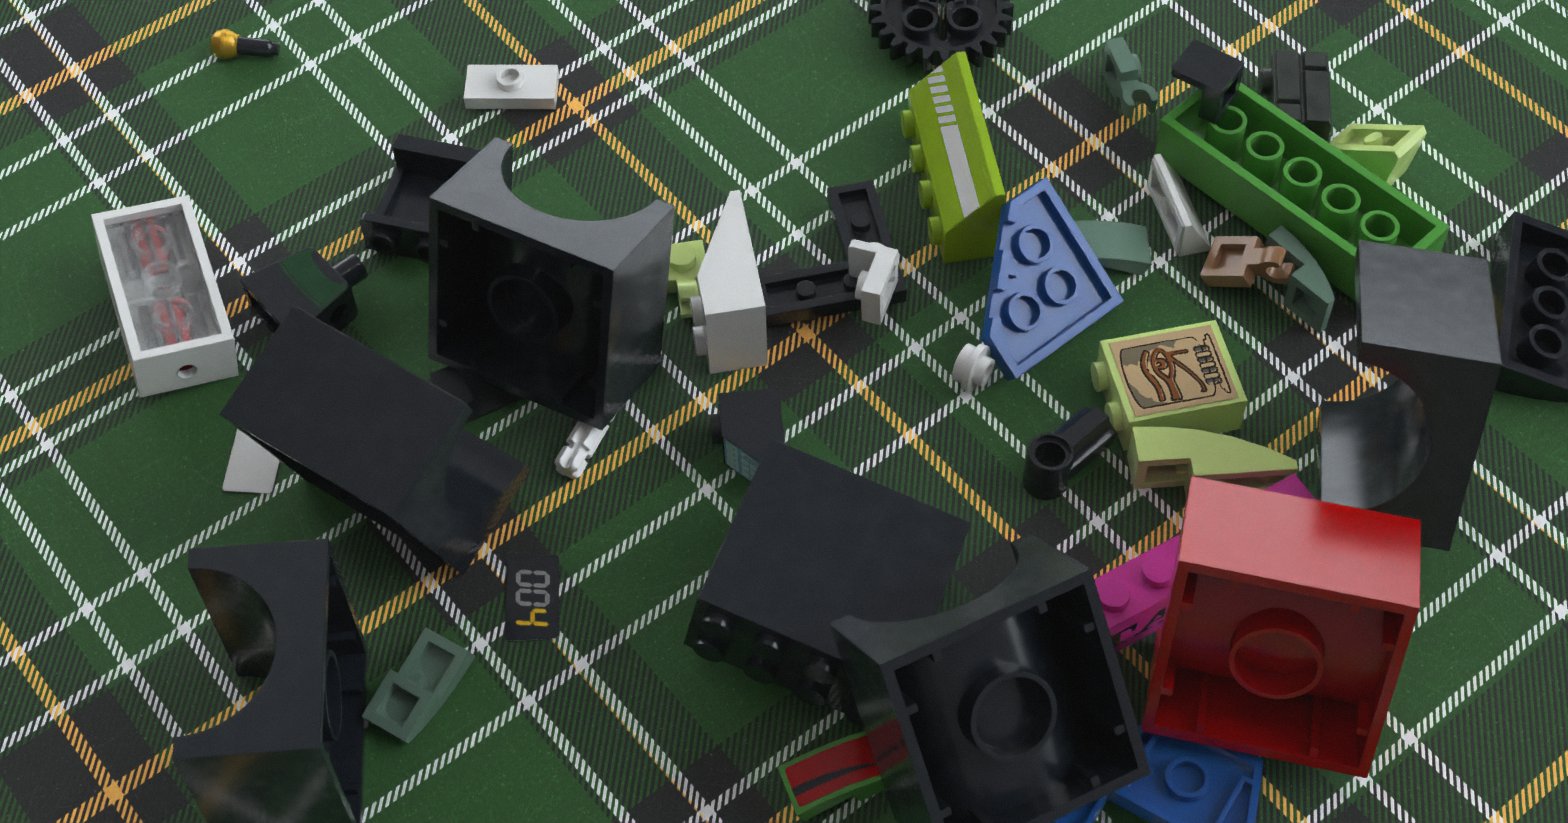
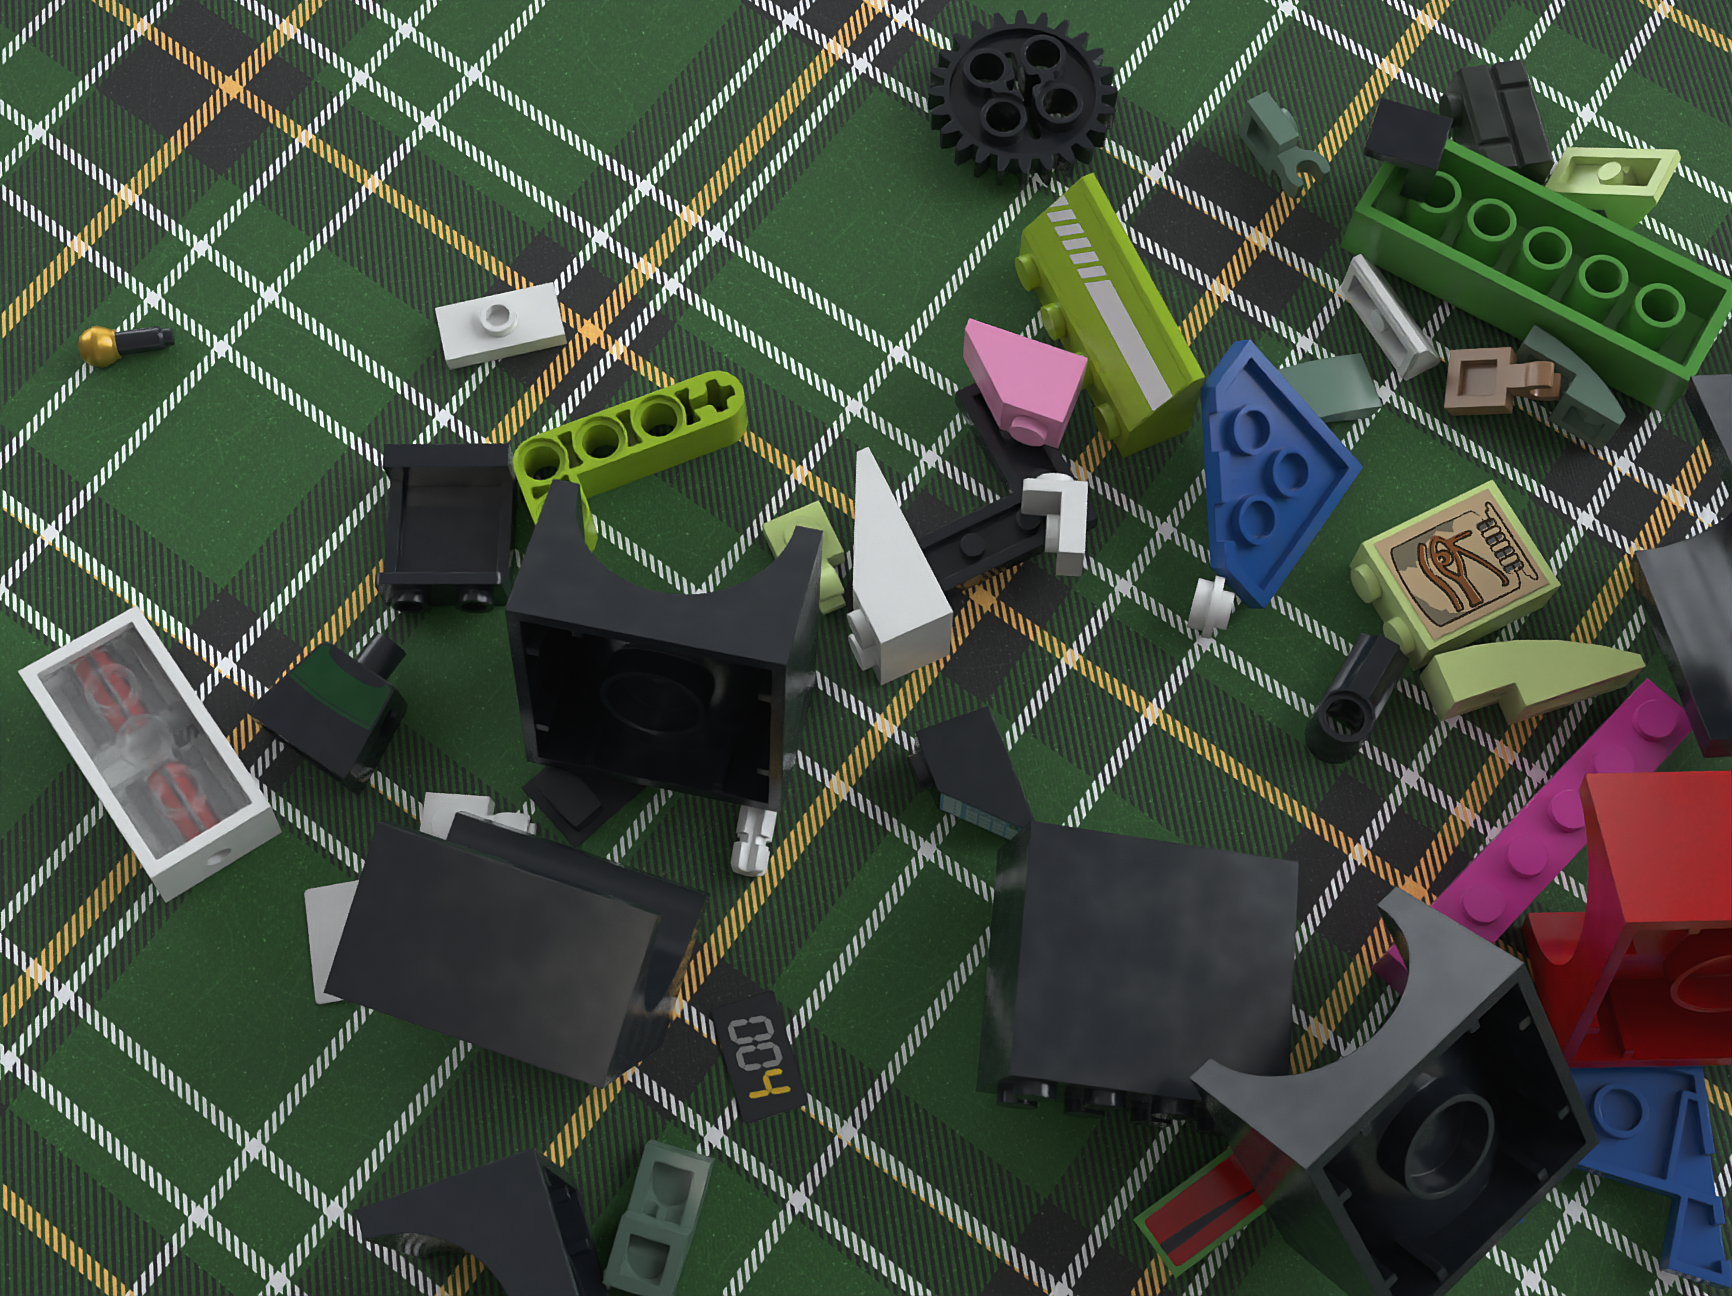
camera: 15 degrees left, 15 degrees up
(591, 171) = (637, 452): none -> lime beam
(879, 185) = (1024, 382): none -> bright pink slope

